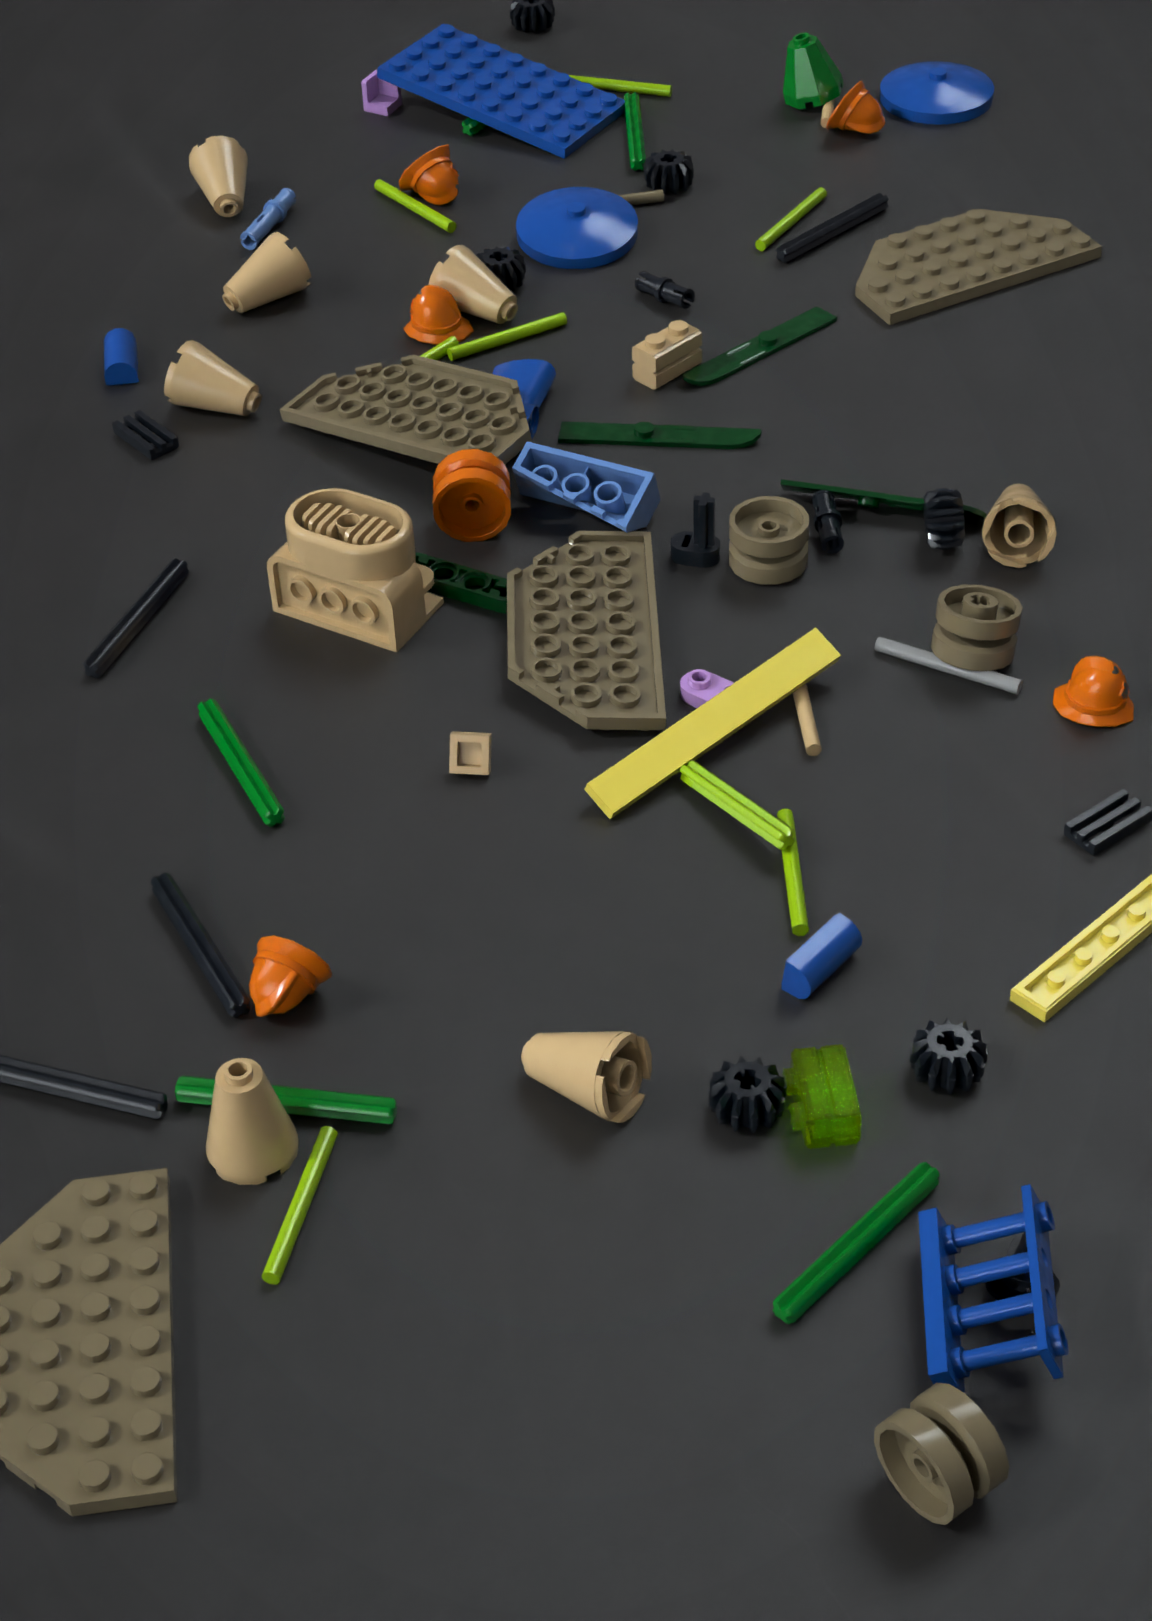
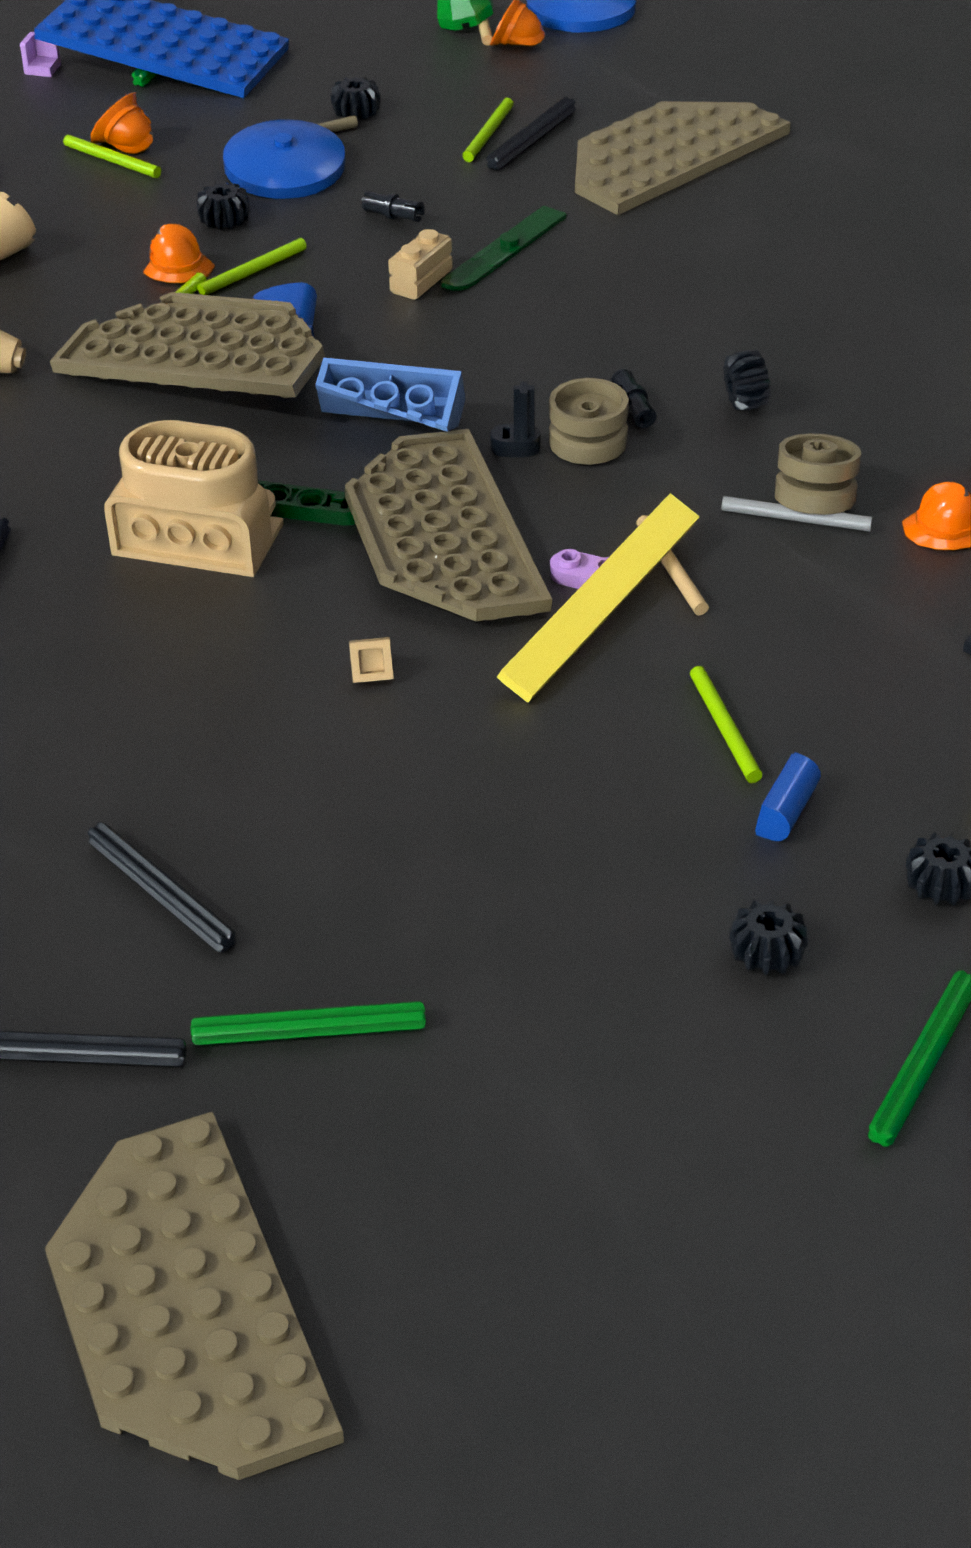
camera: 15 degrees left, 0 degrees up
(241, 762) = (137, 704): green axle -> none
(248, 1126) = (286, 1053): tan cone -> none
(284, 975) = (267, 899): orange piece -> none
(299, 1206) = (361, 1124): lime bar -> none
(471, 495) = (283, 416): orange wheel -> none
(474, 286) = (210, 222): tan cone -> none
(592, 1069) = (608, 938): tan cone -> none
(626, 86) = (285, 25): lime bar -> none
(634, 131) = (306, 66): green axle -> none
(657, 435) = (433, 341): dark green piece -> none
(737, 805) = (651, 669): lime axle -> none
(824, 1096) = (843, 926): clear neon green brick -> none
(869, 498) = (664, 372): dark green piece -> none
(1019, 528) = (820, 379): tan cone -> none

